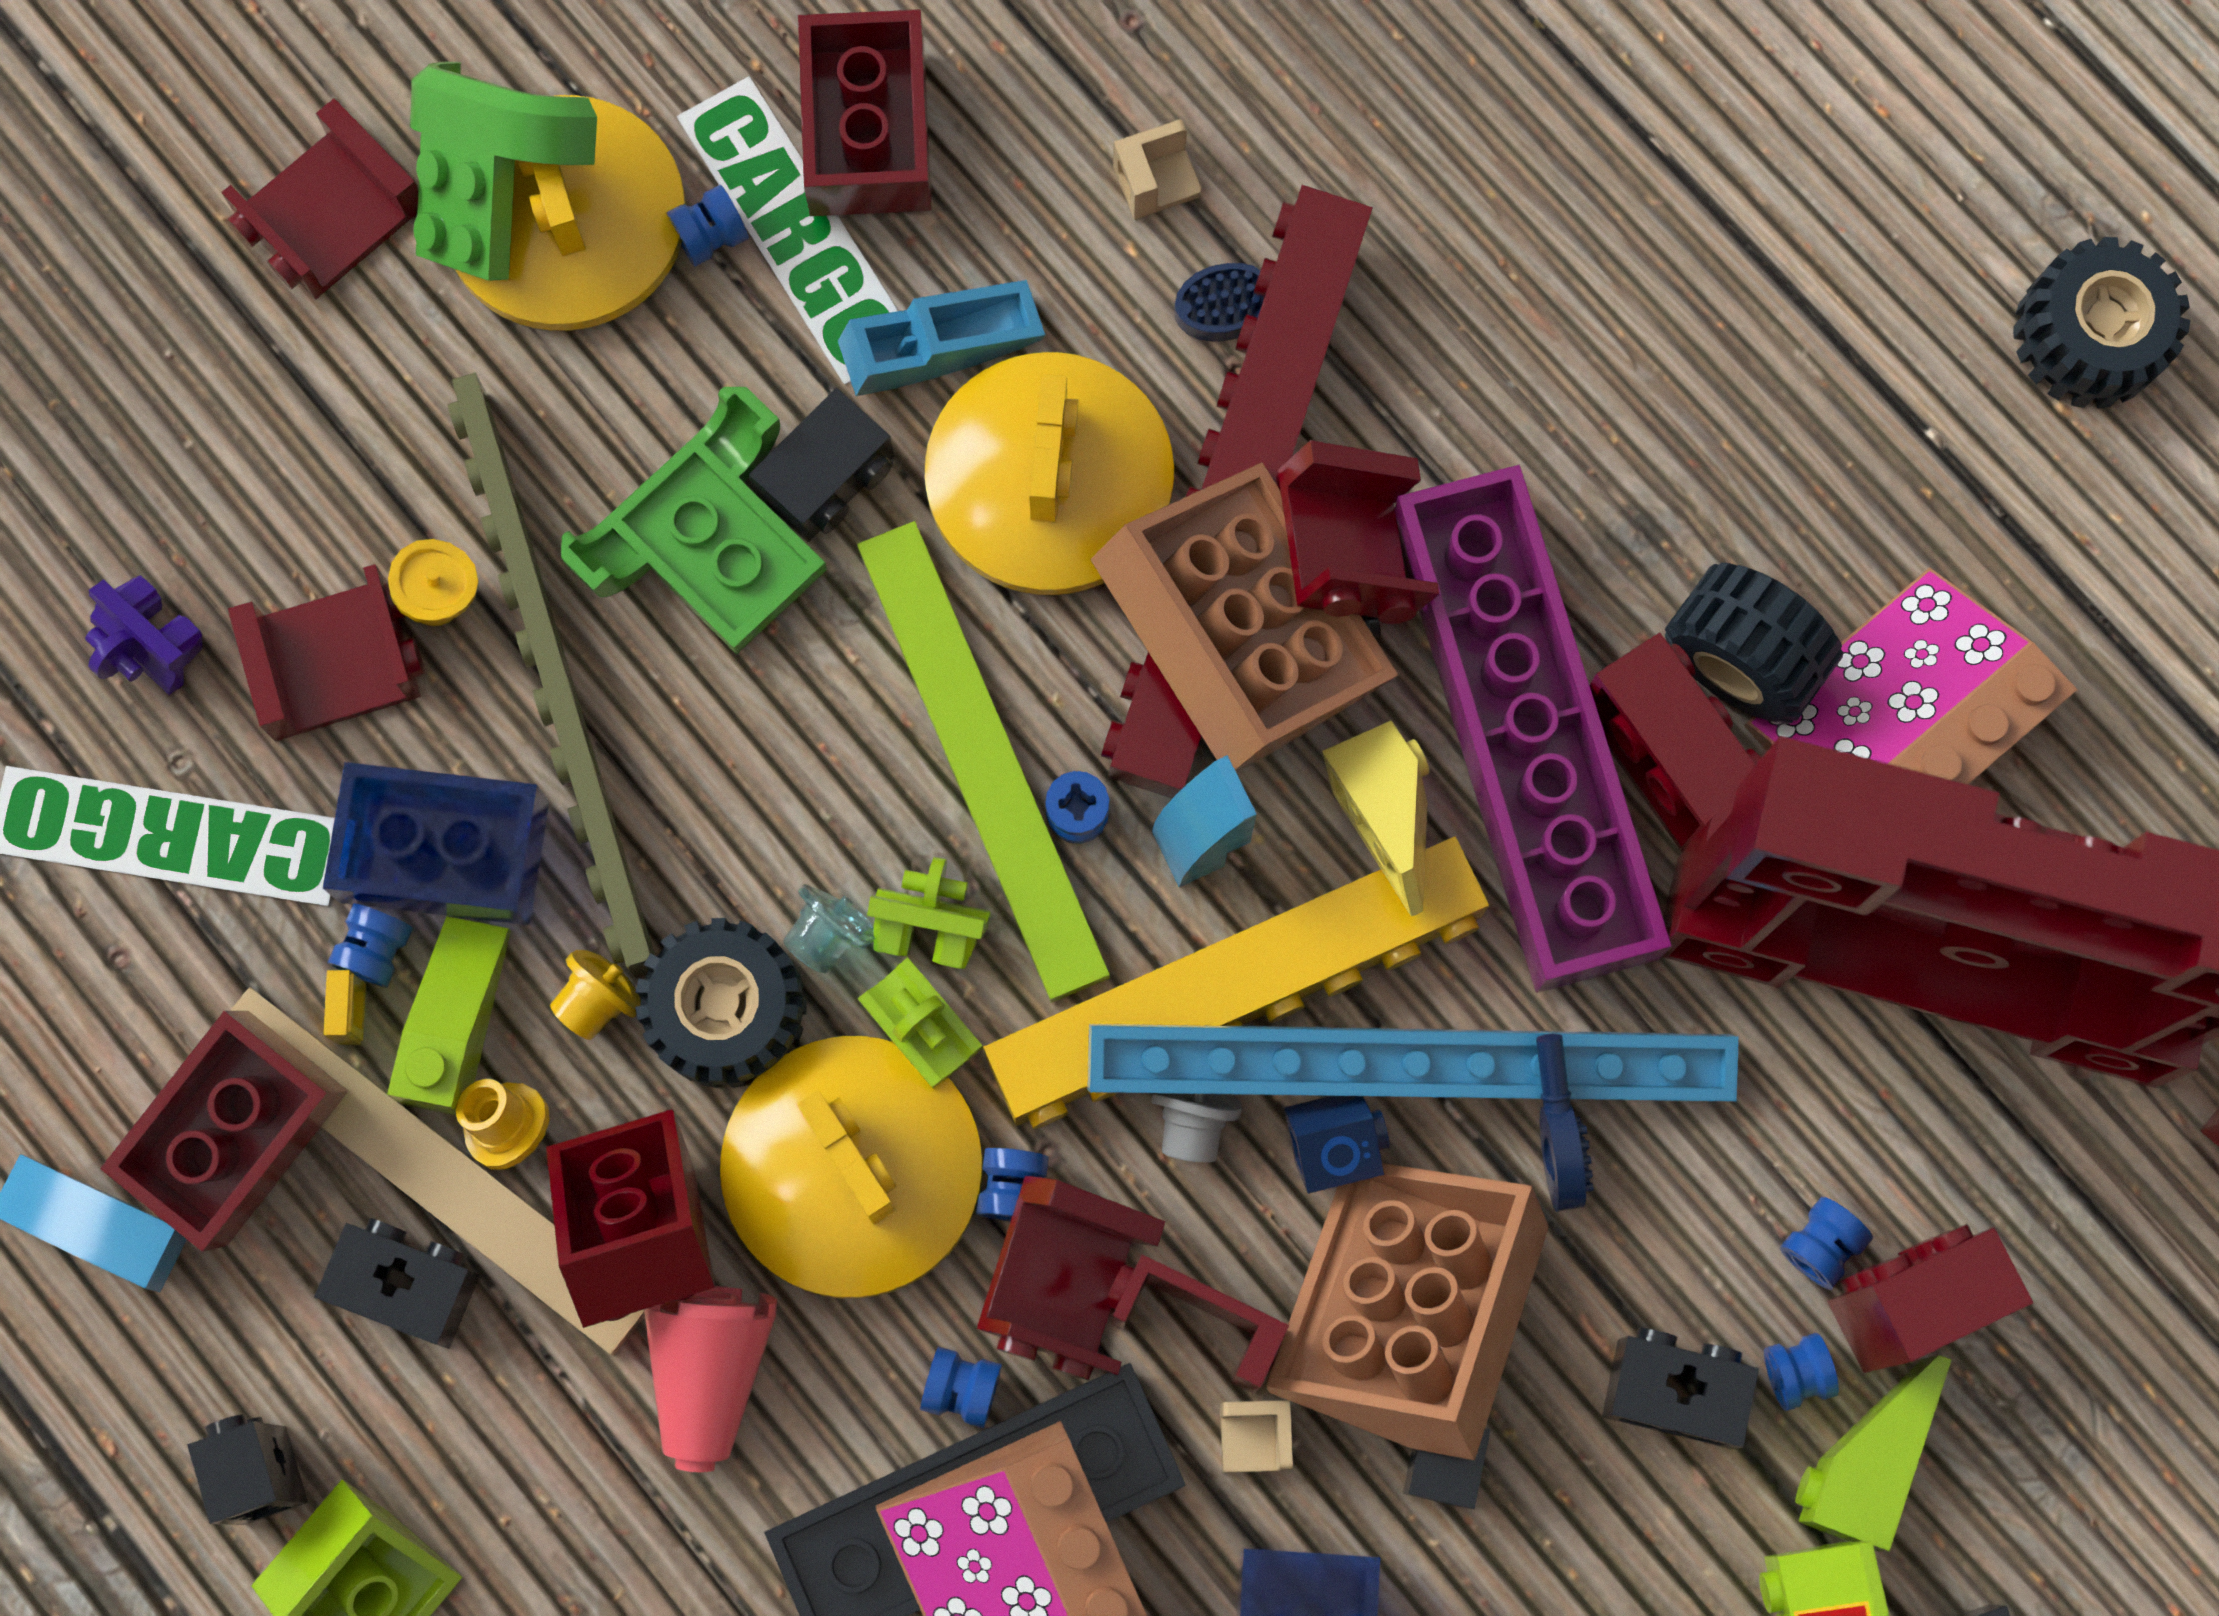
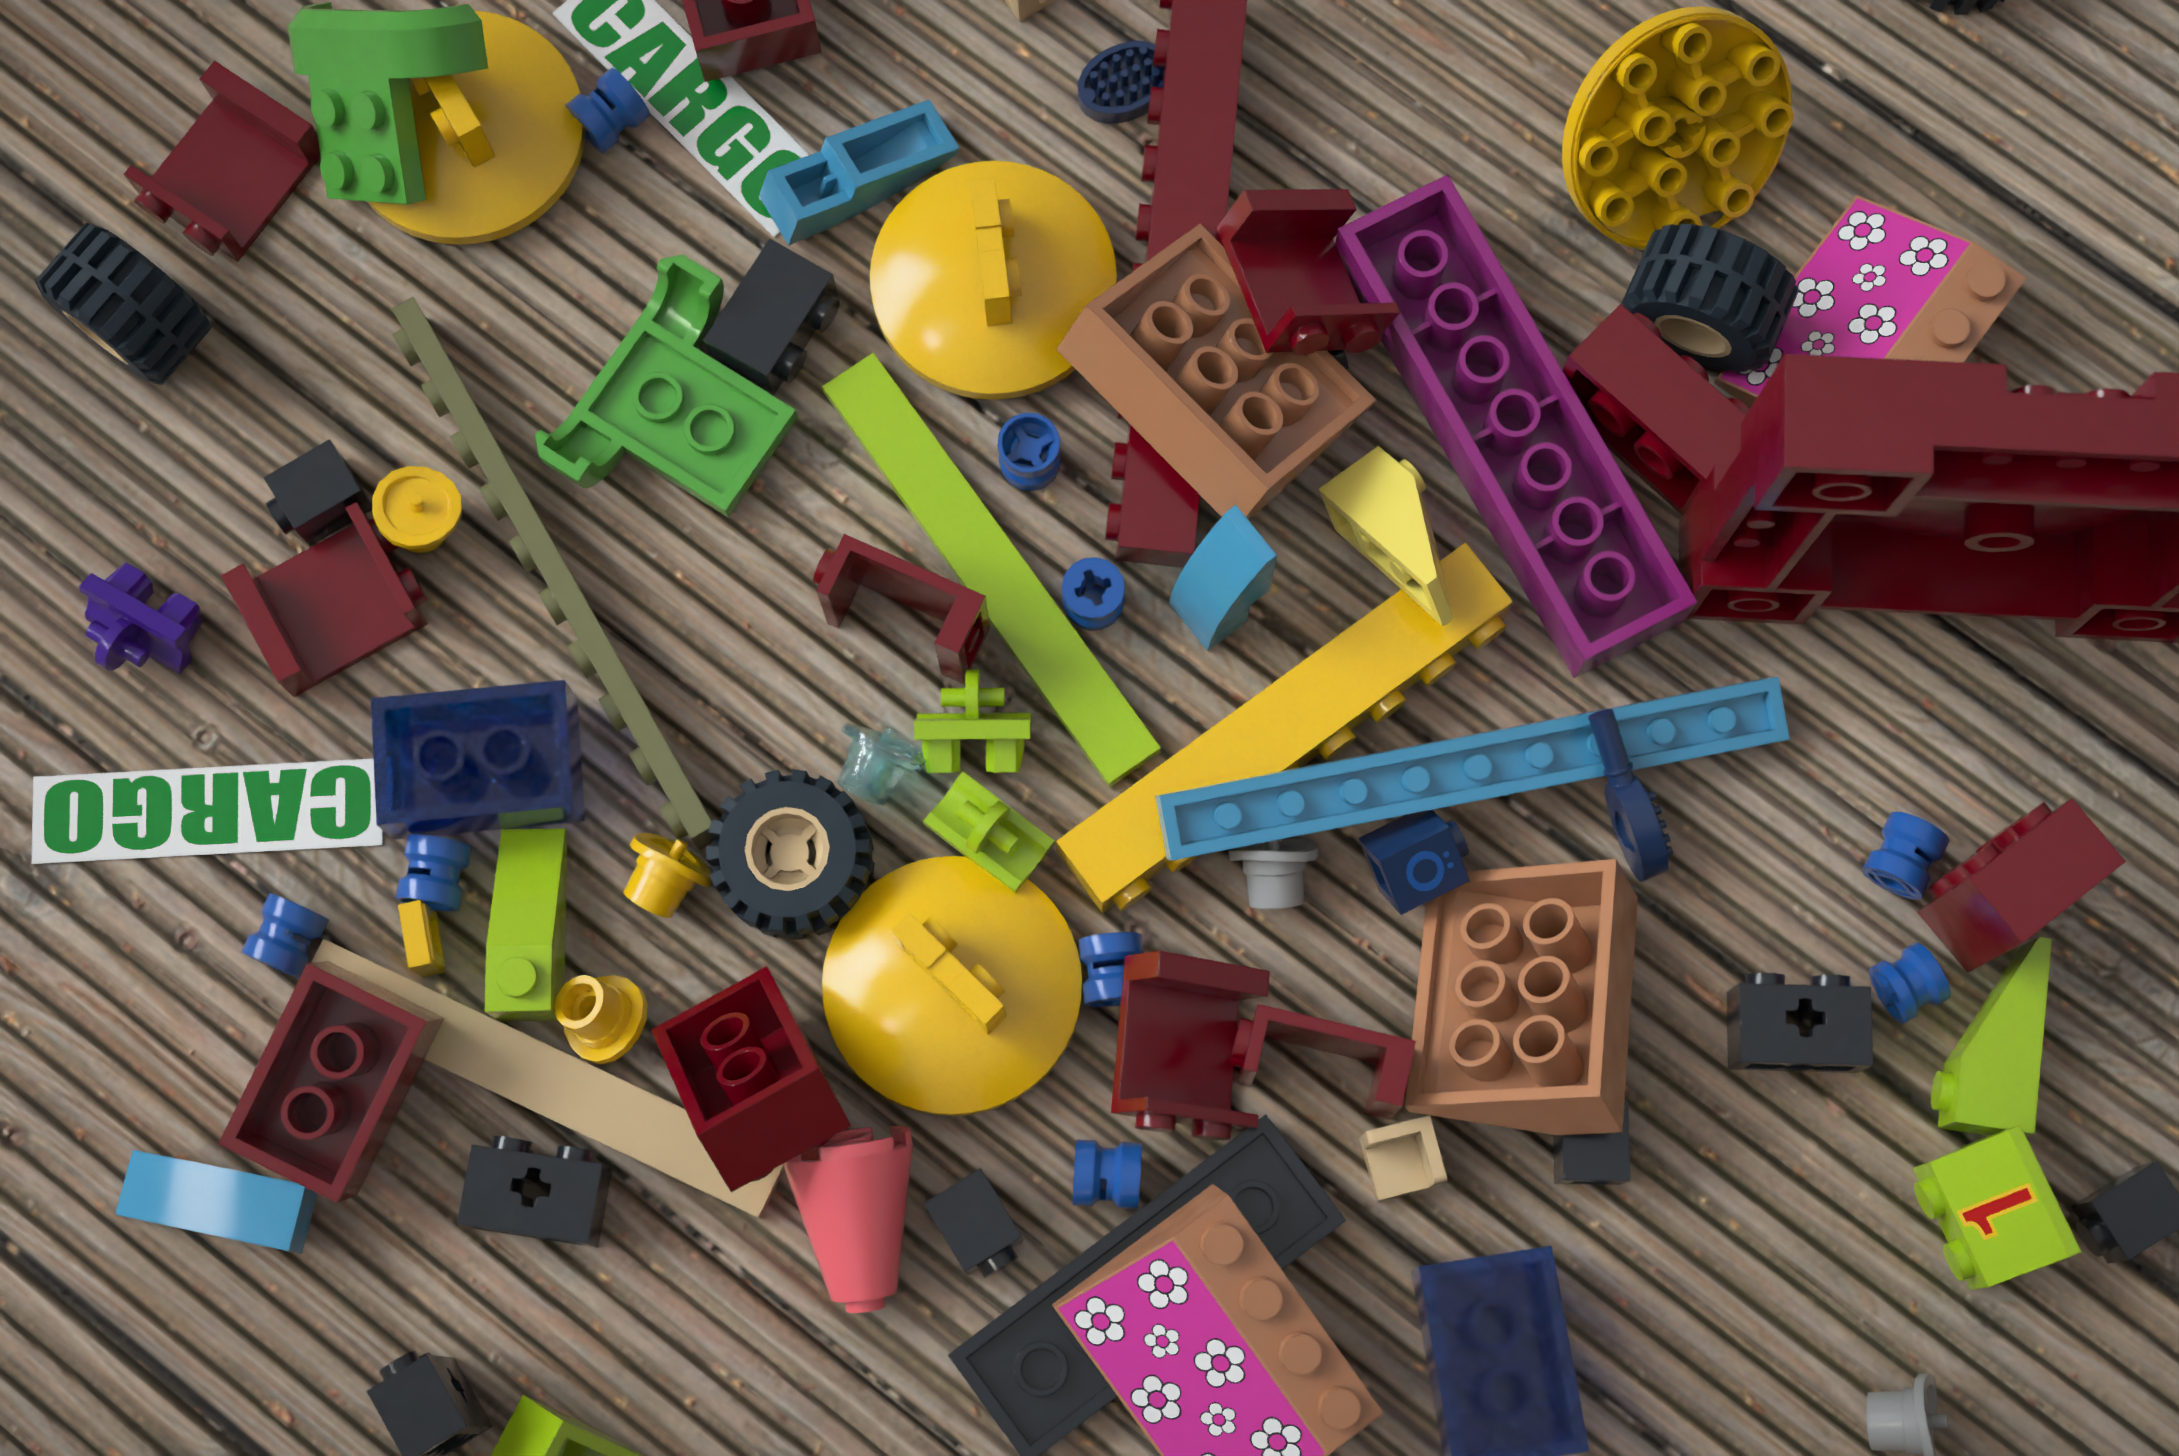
camera: 10 degrees left, 0 degrees up
(192, 321) = (123, 303): none -> black wheel
(198, 984) = (279, 950): none -> blue wheel
(338, 545) = (314, 493): none -> black brick
(820, 1409) = (975, 1225): none -> black brick
(944, 808) = (959, 607): none -> dark red panel
(1043, 639) = (1024, 439): none -> blue wheel
(1759, 463) = (1676, 124): none -> yellow bracket

